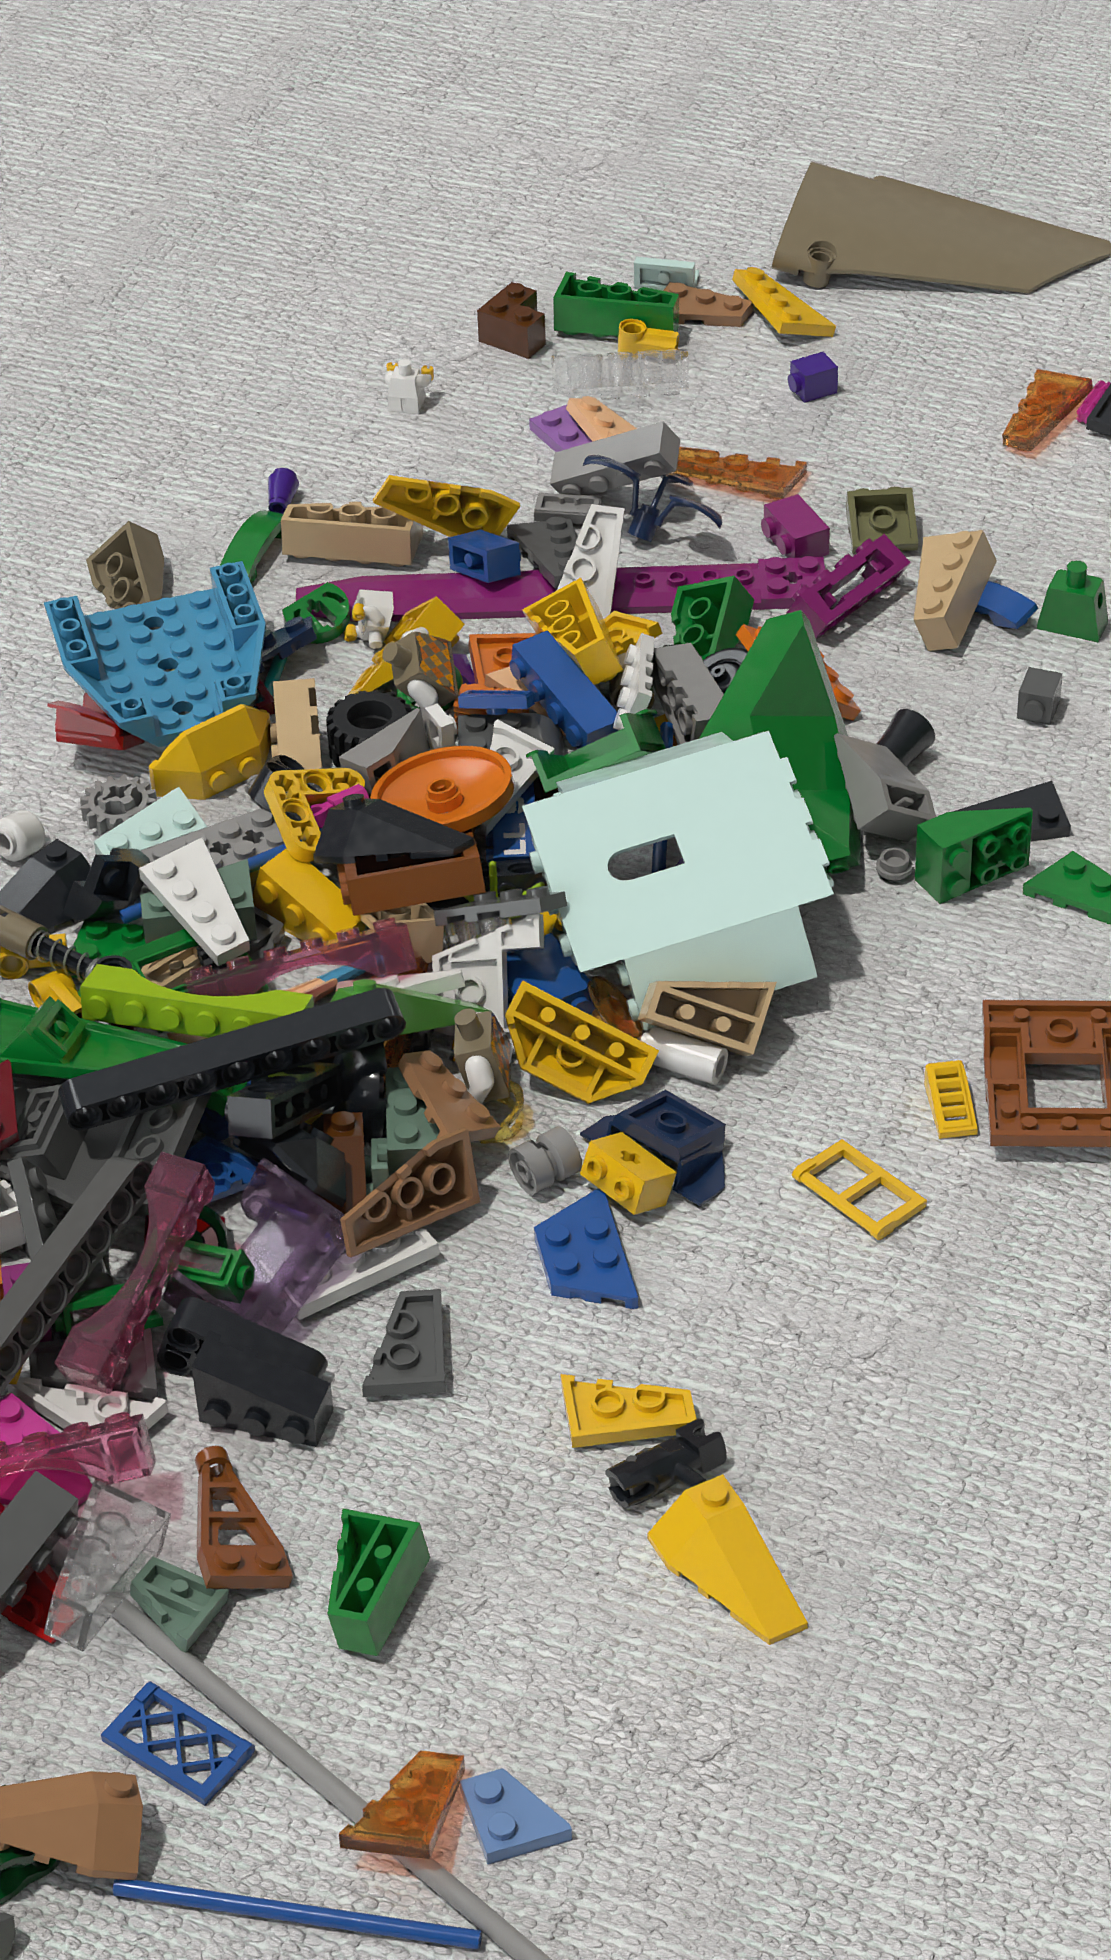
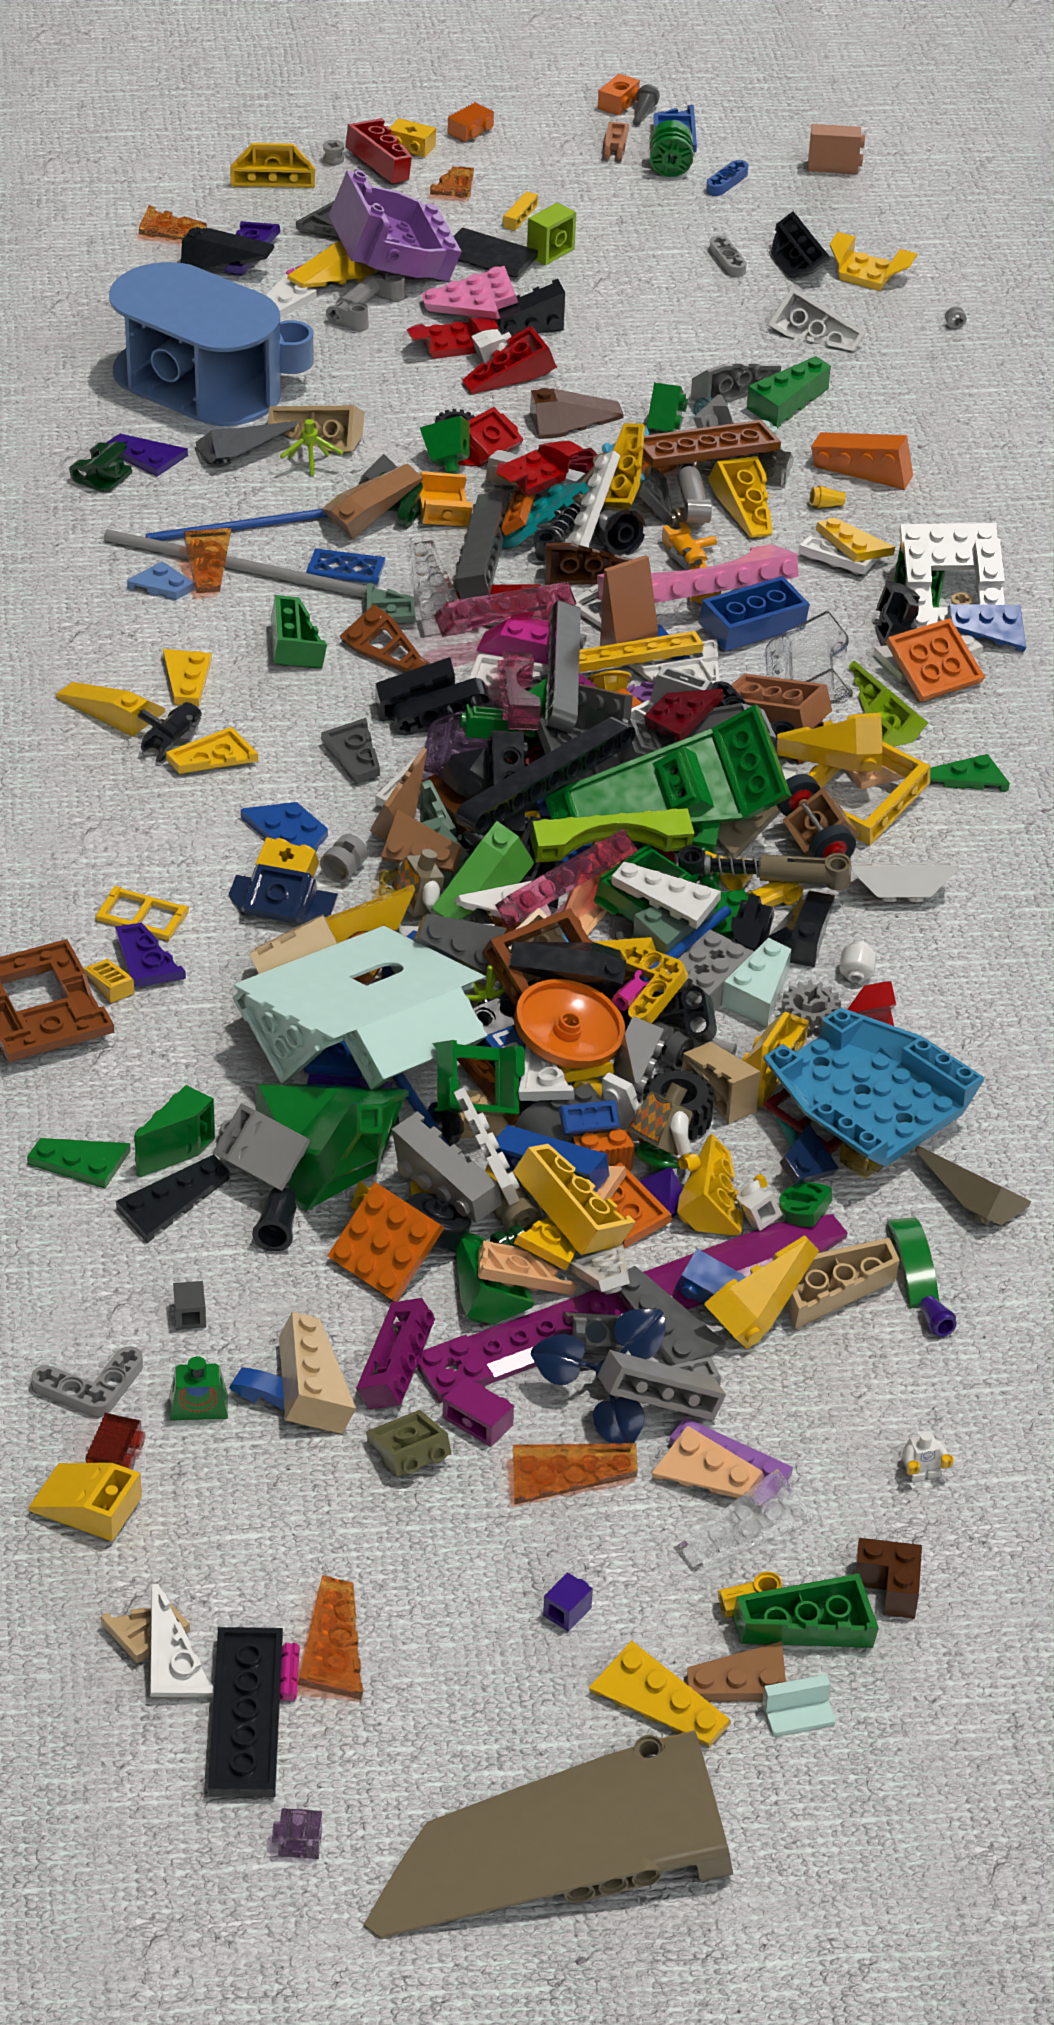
camera: 150 degrees right, 0 degrees up
(576, 1588) = (187, 674): none -> yellow wing
(654, 540) = (594, 1331): none -> dark grey piece
(685, 610) = (519, 1267): none -> light nougat wing
(888, 1111) = (145, 958): none -> dark purple wing

